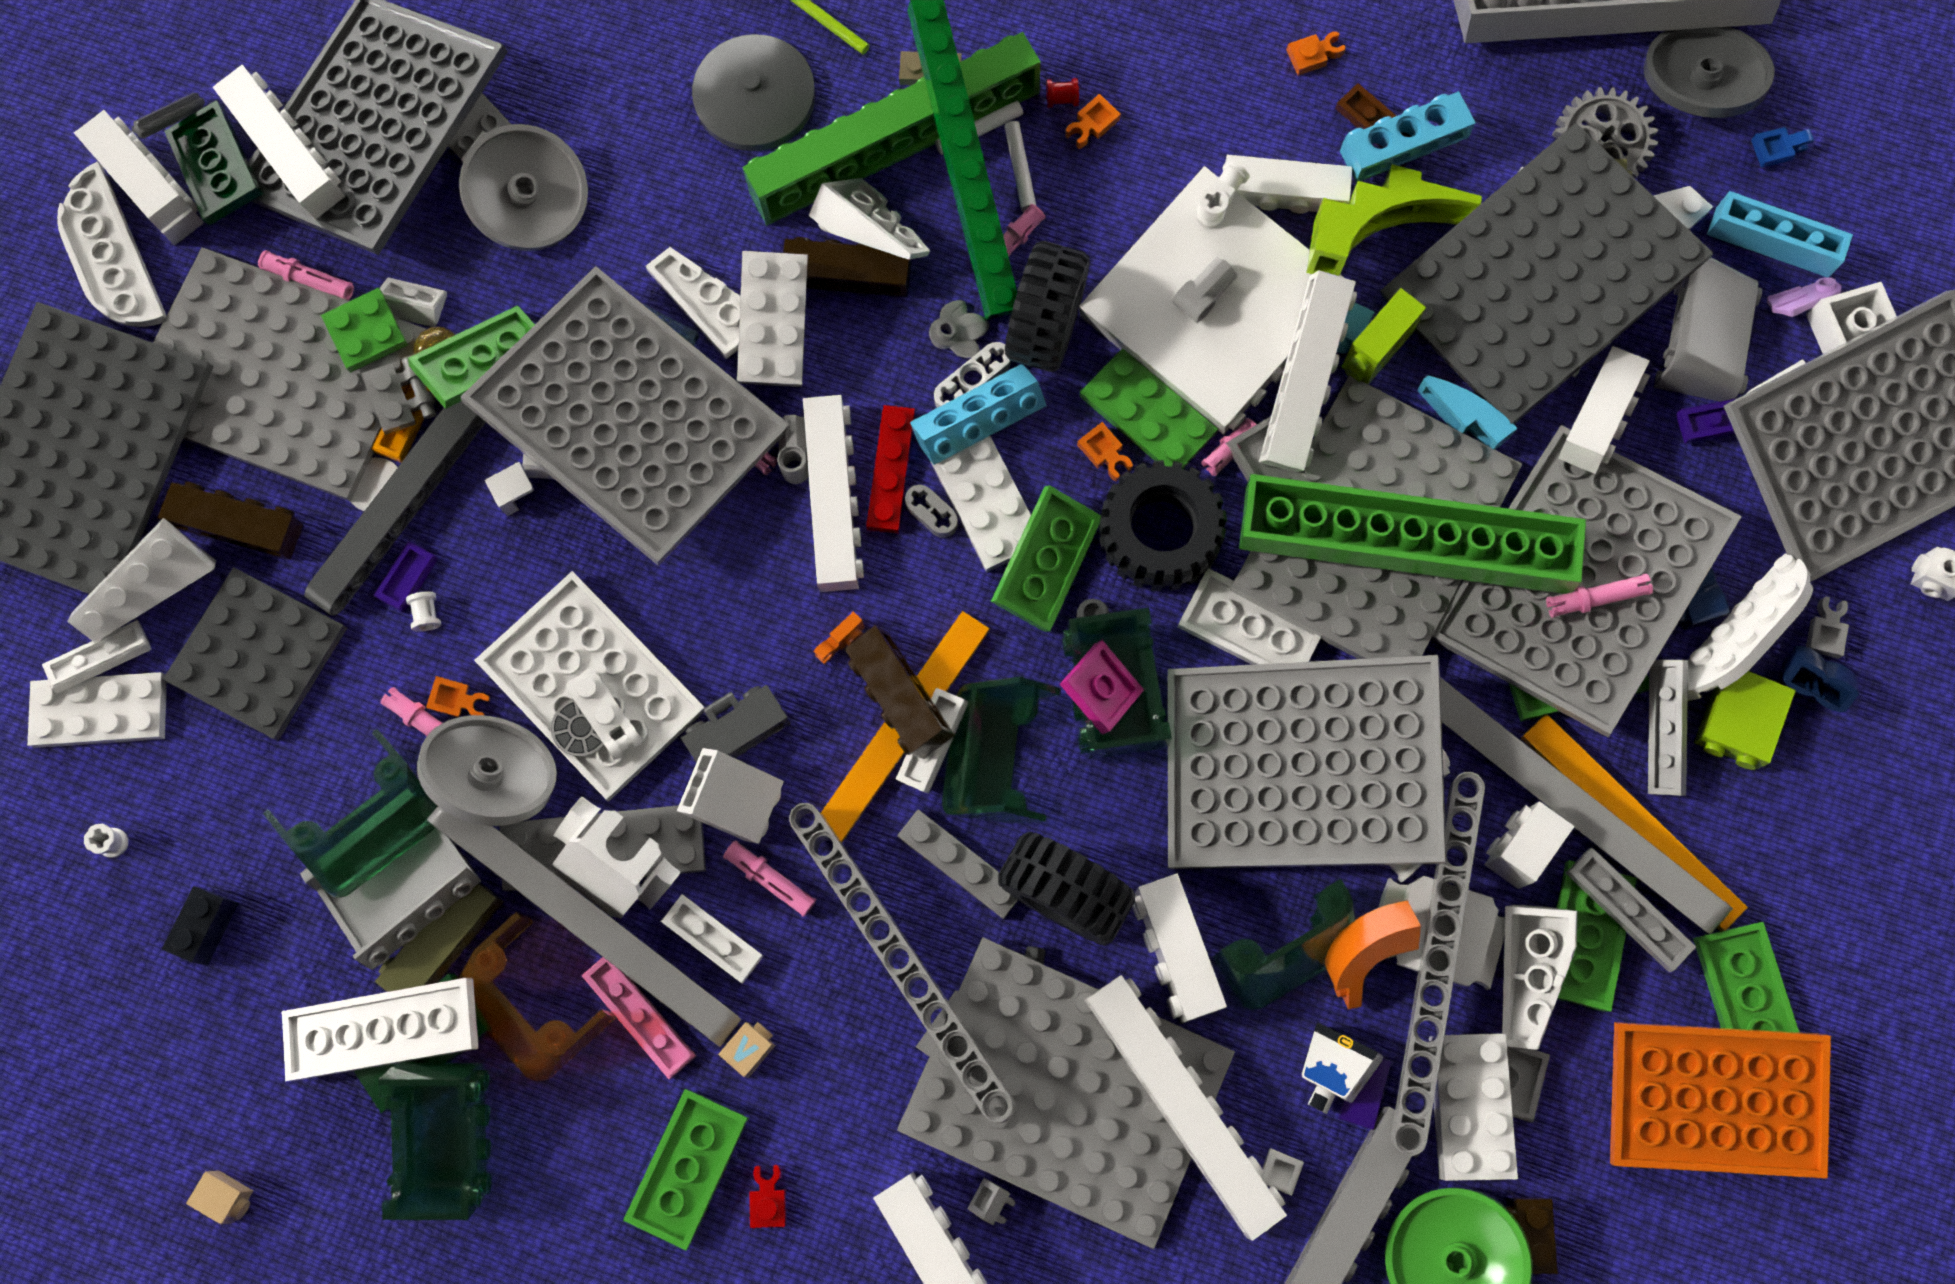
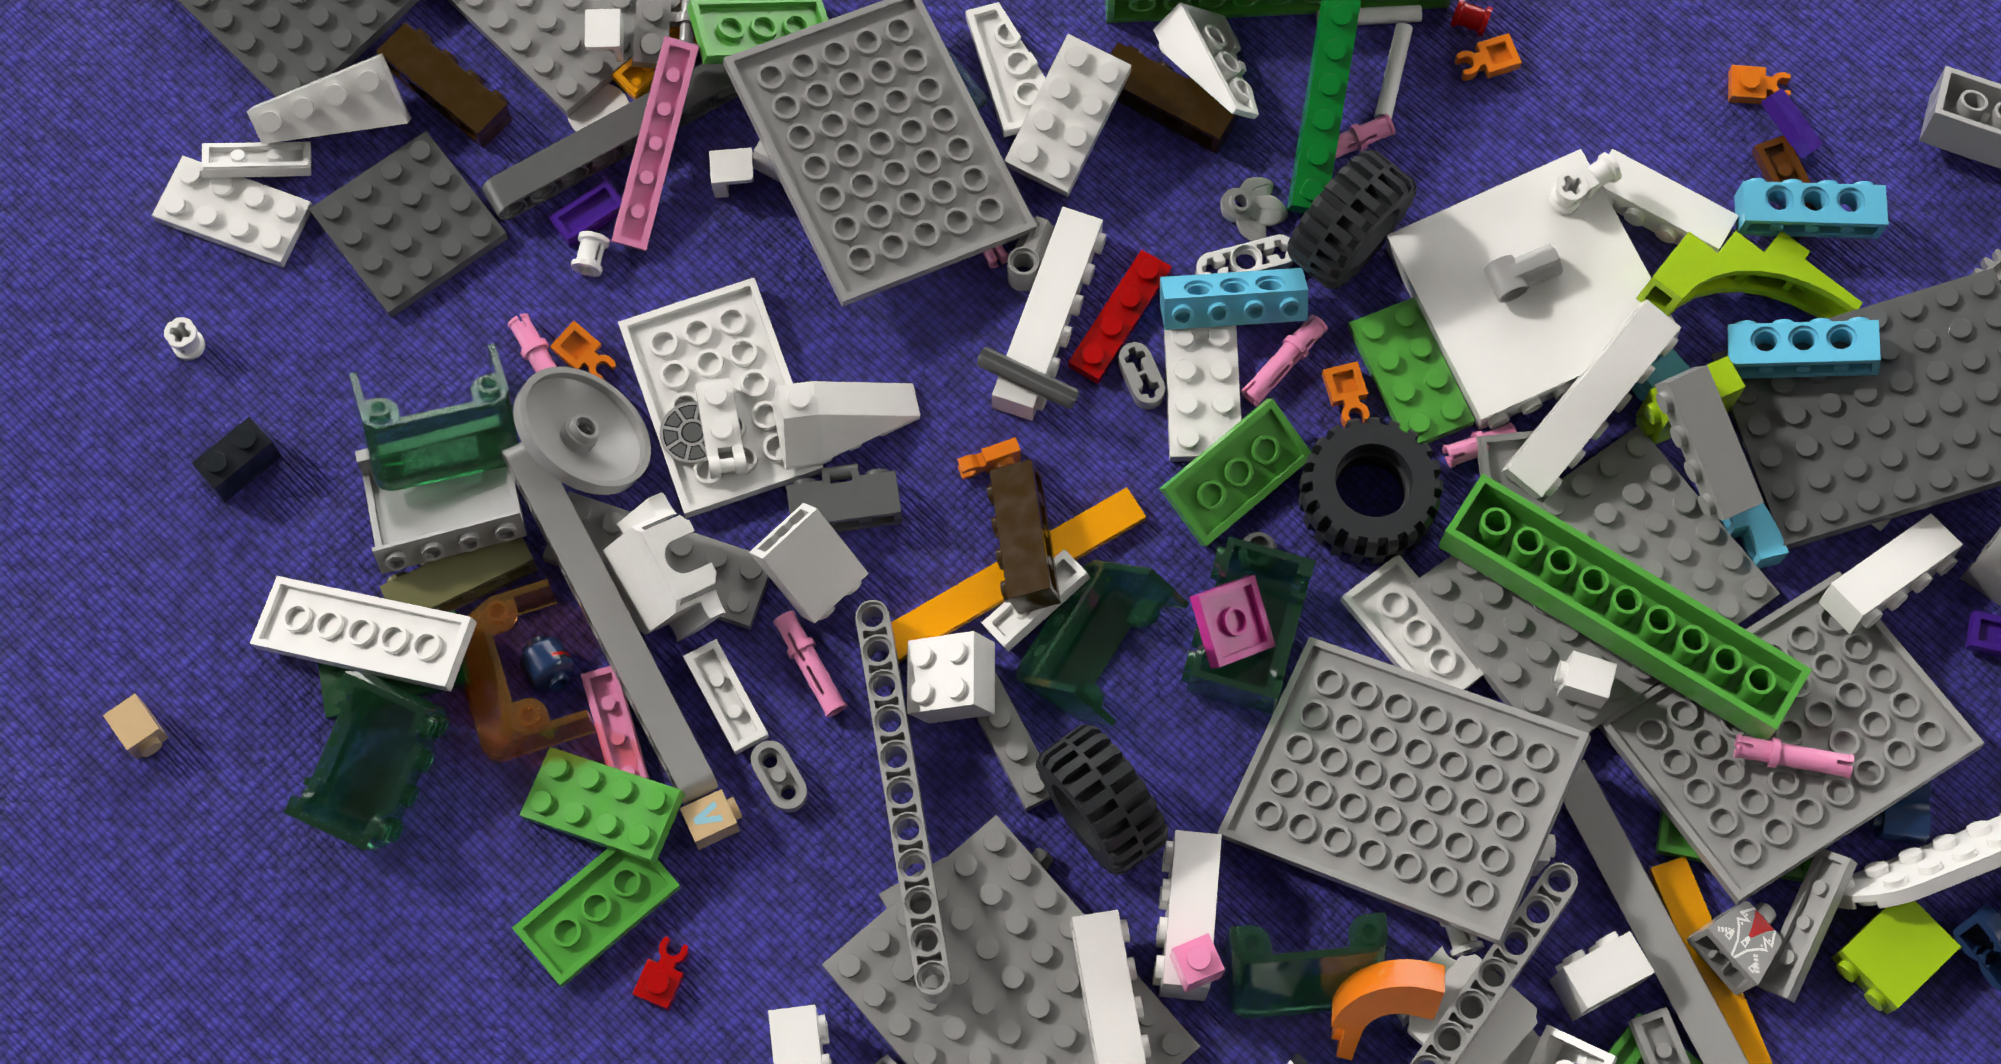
camera: 20 degrees right, 5 degrees down
(348, 416) = (605, 31): none -> white panel
(435, 493) = (655, 143): none -> bright pink plate
(548, 980) = (547, 664): none -> dark blue head
(651, 1080) = (602, 805): none -> bright green plate
(693, 663) = (831, 417): none -> white wedge
(788, 986) = (780, 777): none -> light grey plate
(840, 557) = (1028, 377): none -> dark grey axle
(892, 839) = (951, 677): none -> white brick
(1043, 441) = (1294, 348): none -> bright pink pin
(1209, 993) = (1196, 962): none -> bright pink brick
(1358, 71) = (1791, 123): none -> dark purple tile
(1407, 606) = (1585, 679): none -> white brick
(1418, 368) = (1708, 443): none -> light grey brick
(1495, 223) = (1820, 360): none -> medium azure brick
(1623, 768) = (1739, 944): none -> light grey torso

